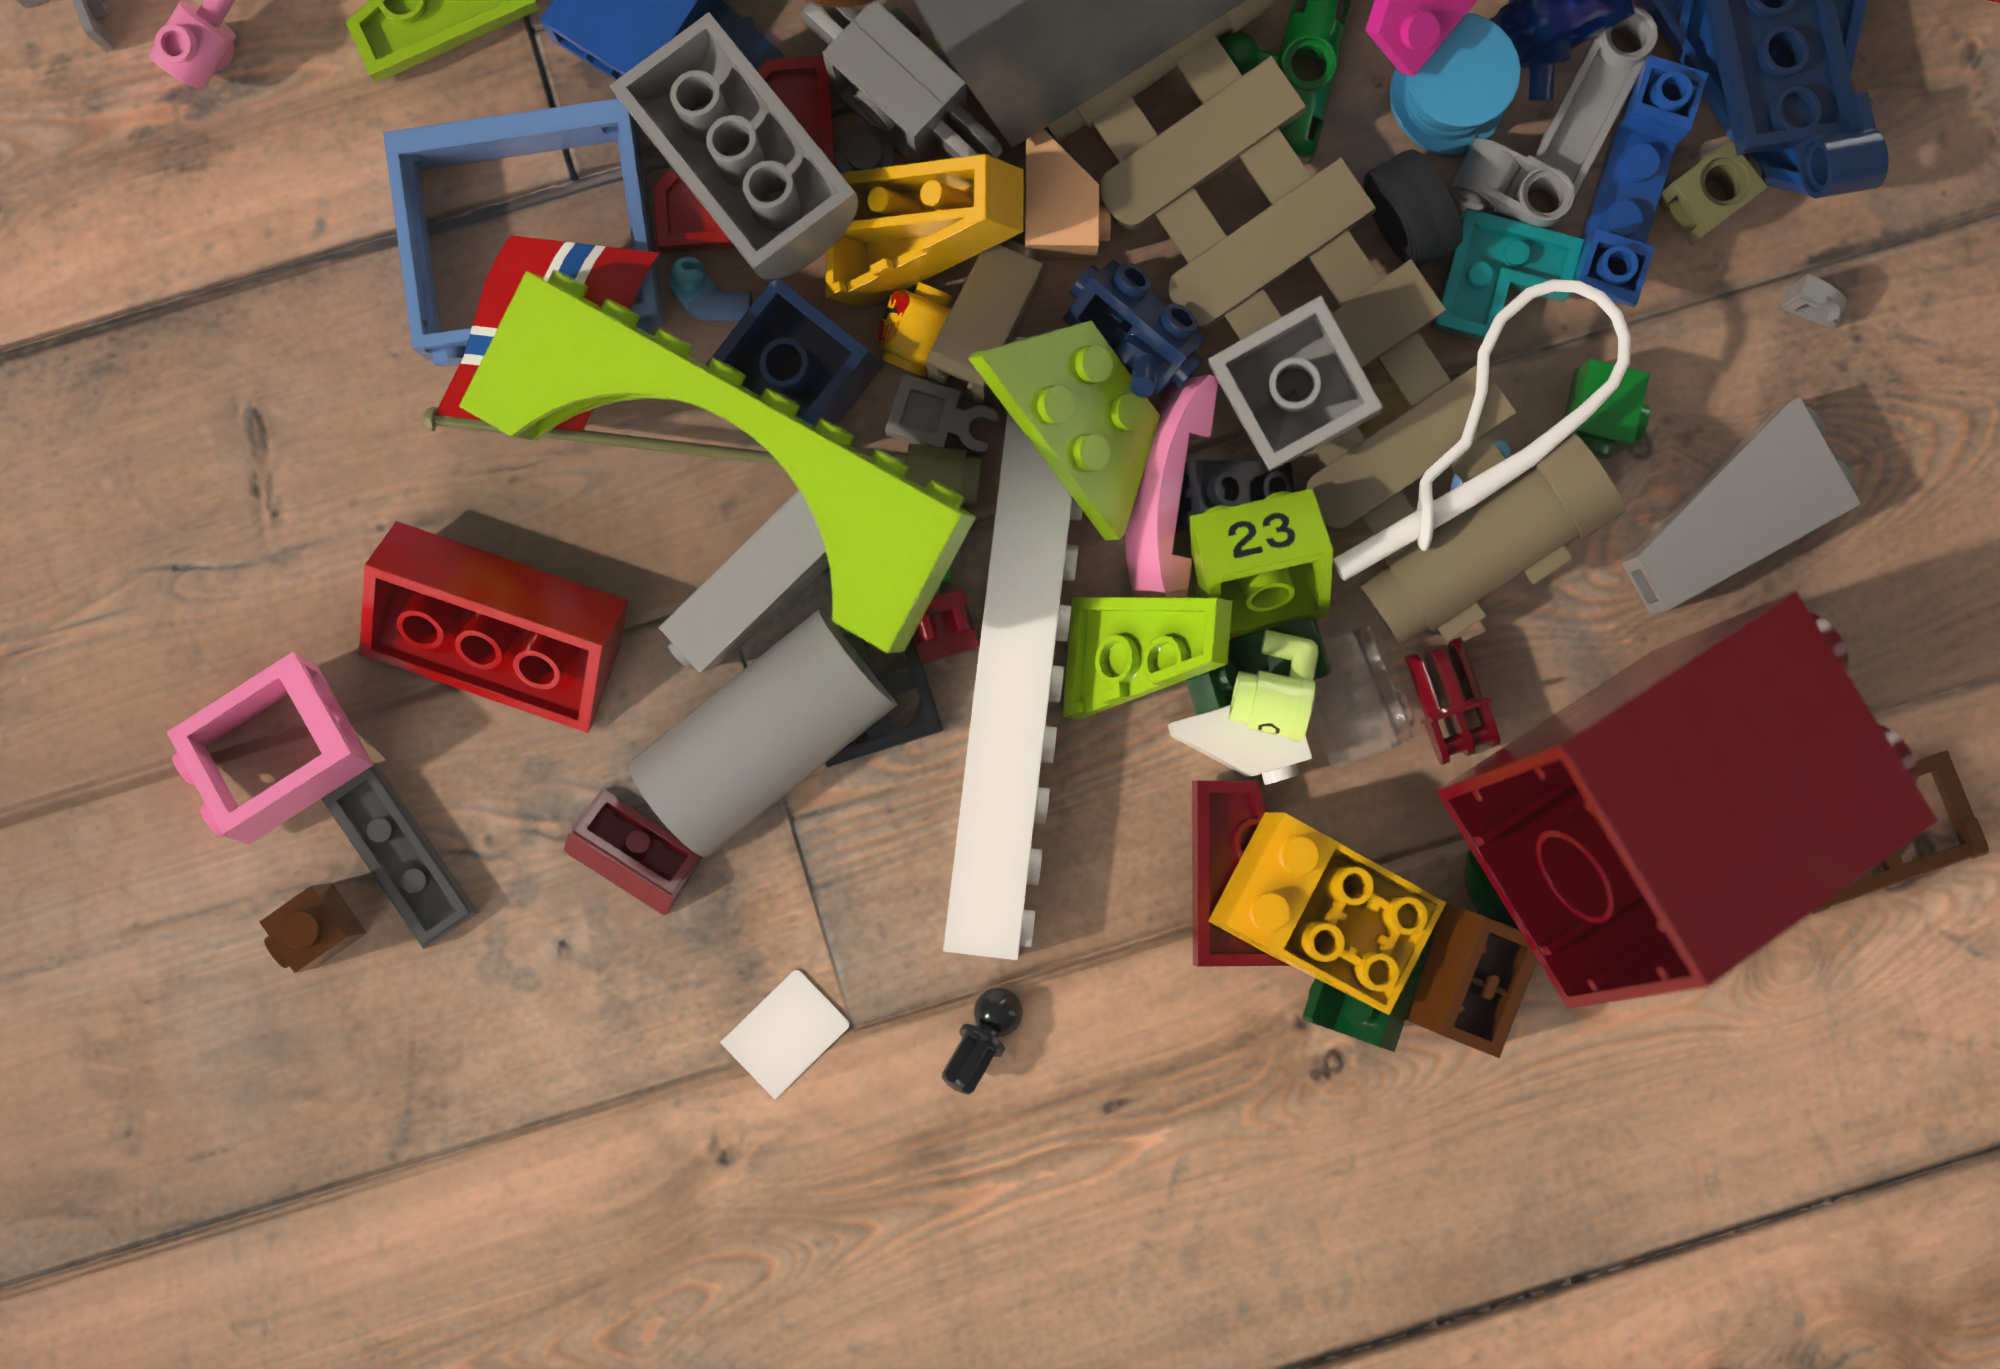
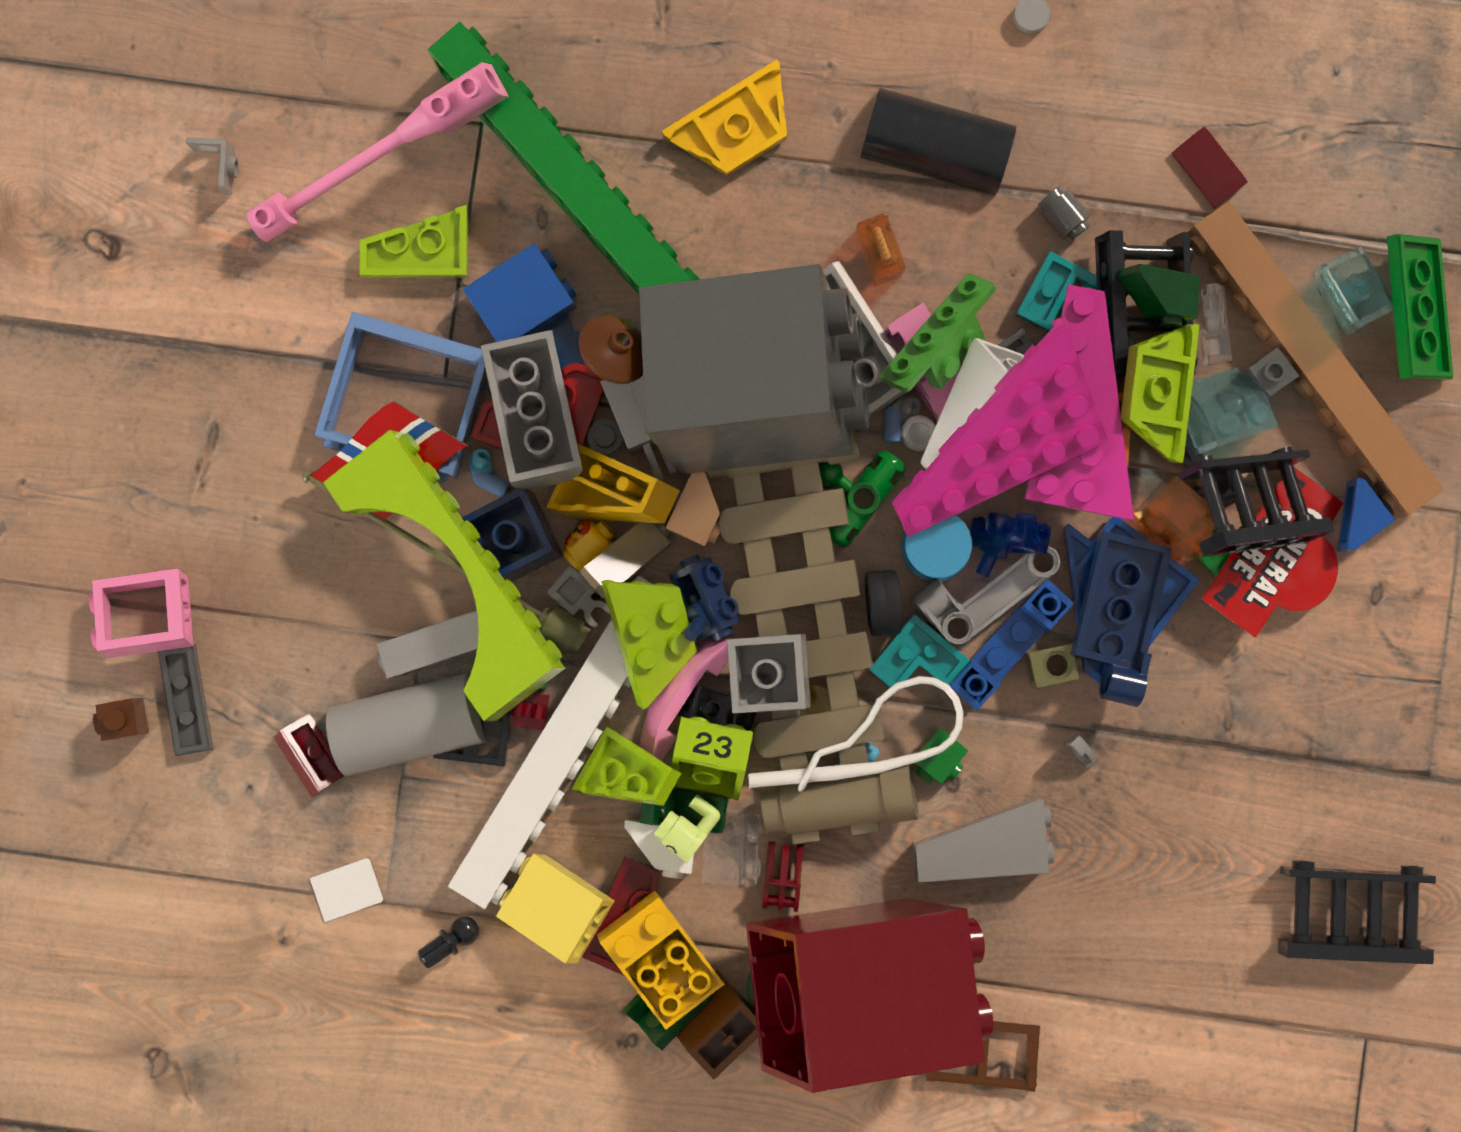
camera: 30 degrees right, 0 degrees up
(490, 625) = (289, 600): red slope -> none
(1123, 909) = (554, 908): none -> light yellow brick

